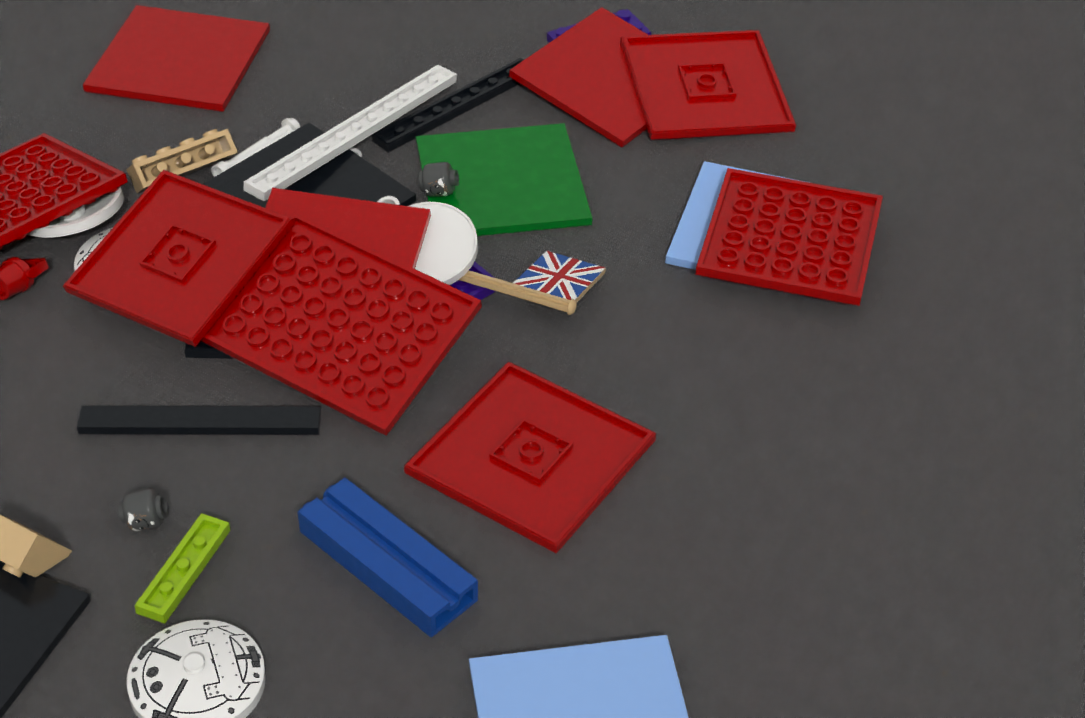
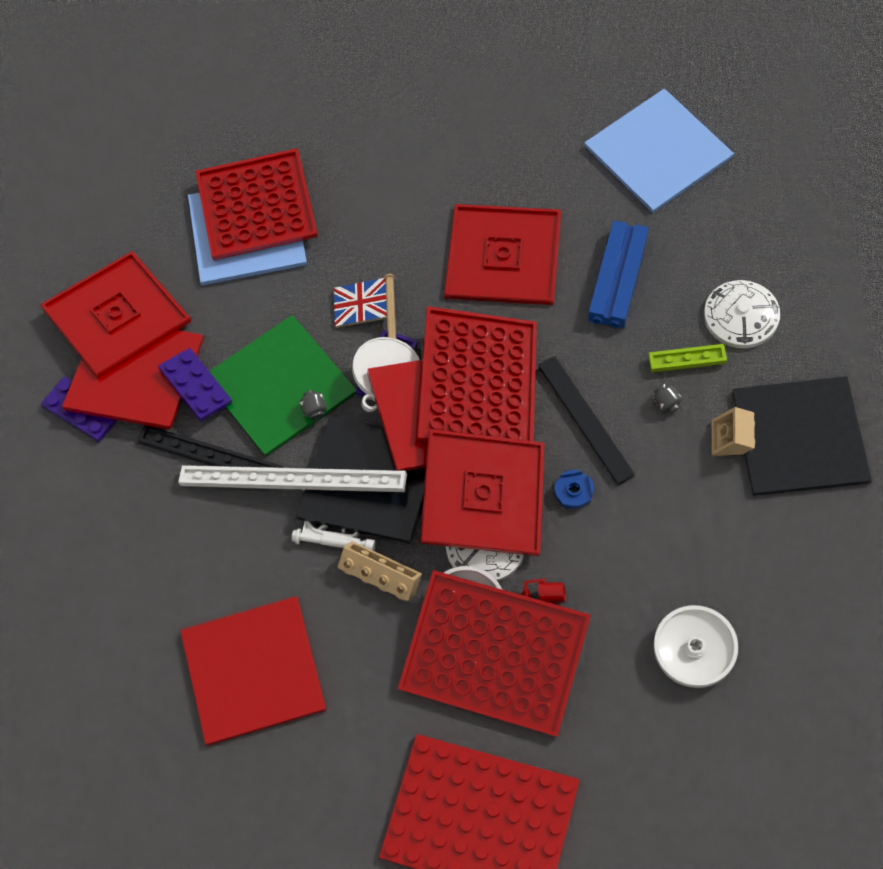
camera: 110 degrees left, 20 degrees up
(120, 374) = (574, 500): none -> blue plate
(551, 105) = (195, 384): none -> dark purple plate

